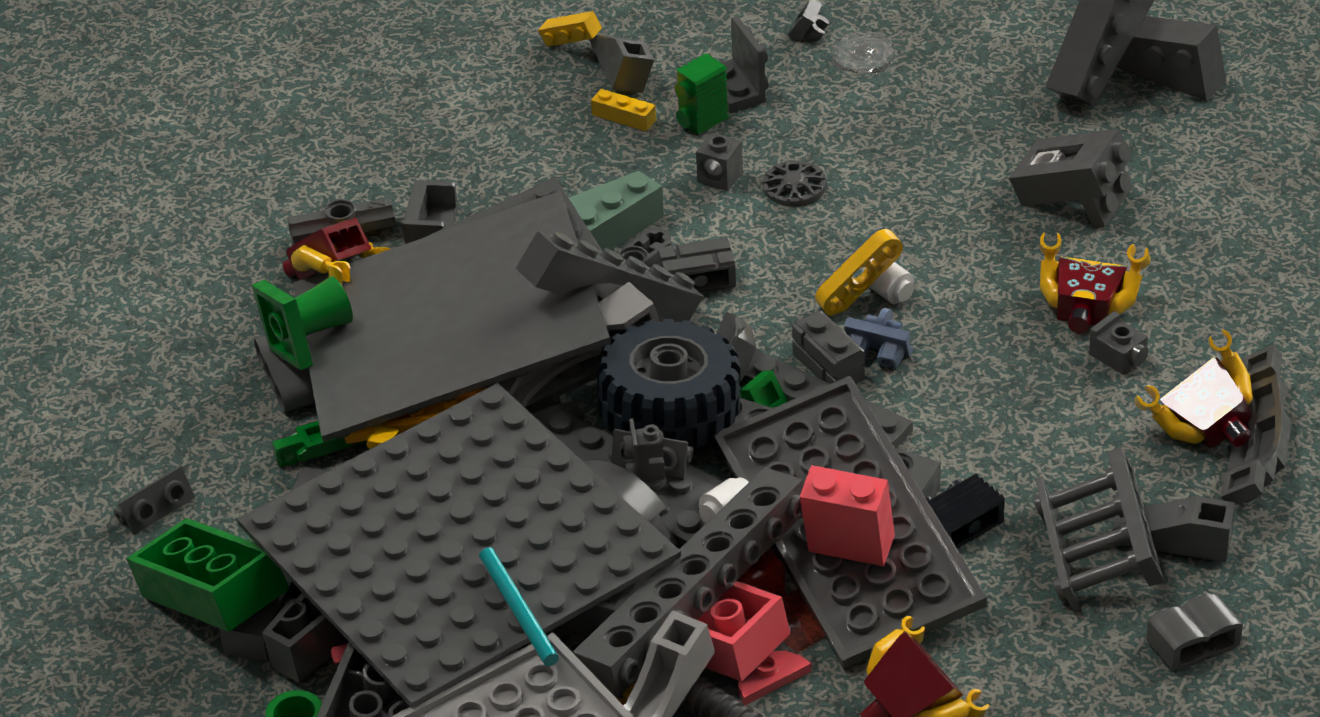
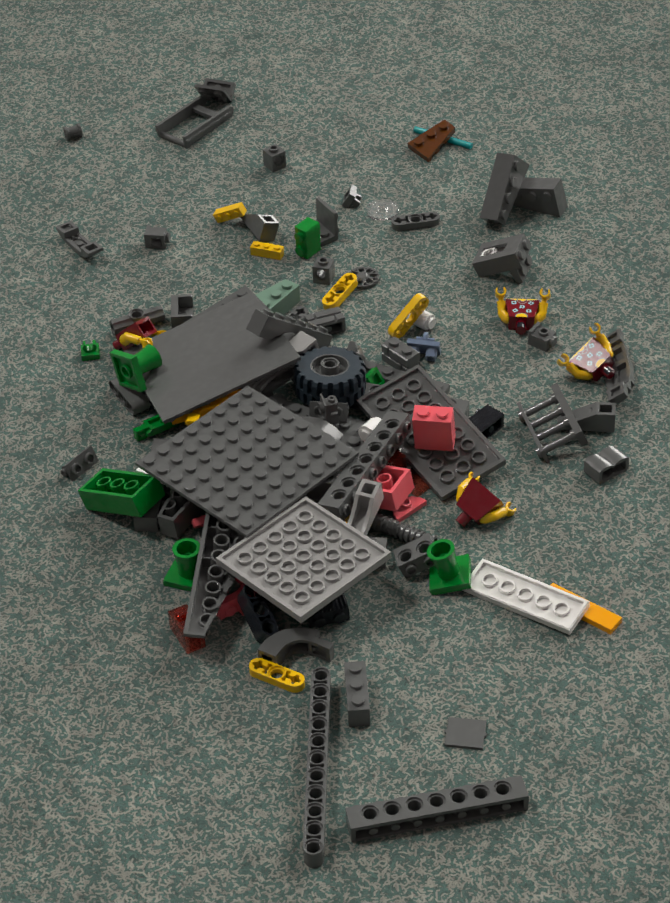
camera: 10 degrees left, 0 degrees up
(239, 274) = (90, 351): none -> green tile
(274, 54) = (78, 243): none -> dark grey slope
(421, 63) = (156, 237): none -> dark grey brick
(519, 607) = (287, 484): teal bar -> none
(758, 191) = (346, 283): none -> yellow beam
(953, 81) = (425, 219): none -> dark grey beam

